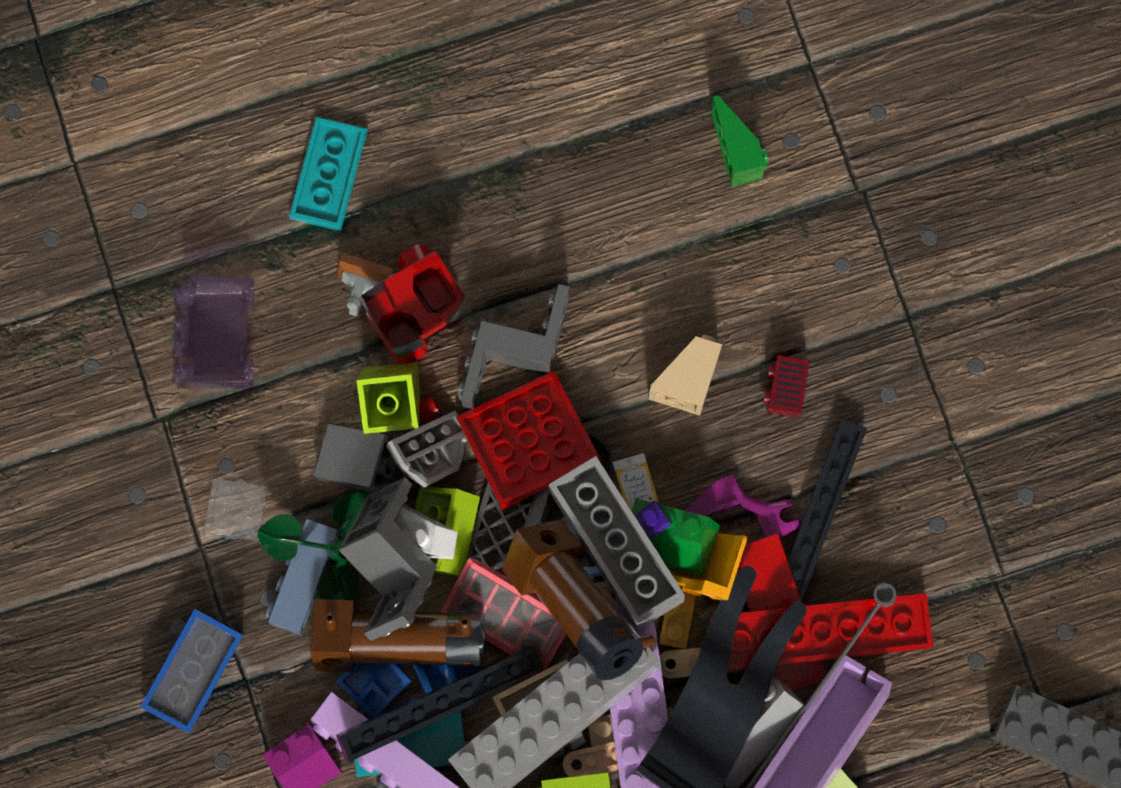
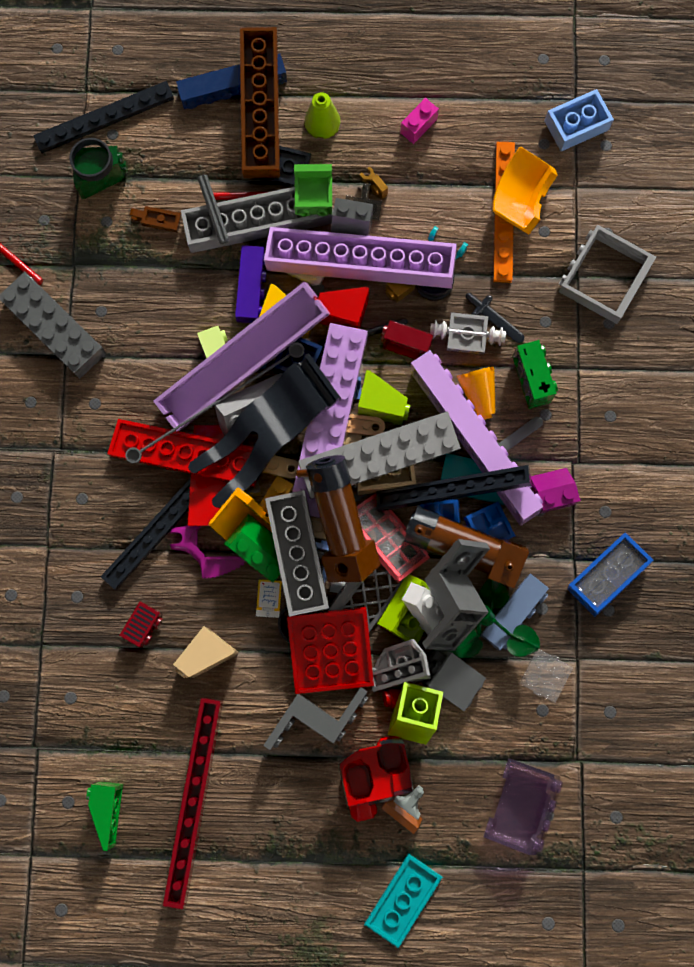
camera: 160 degrees left, 0 degrees up
(633, 195) = (193, 804): none -> dark red brick
(653, 520) = (267, 560): dark purple plate -> none

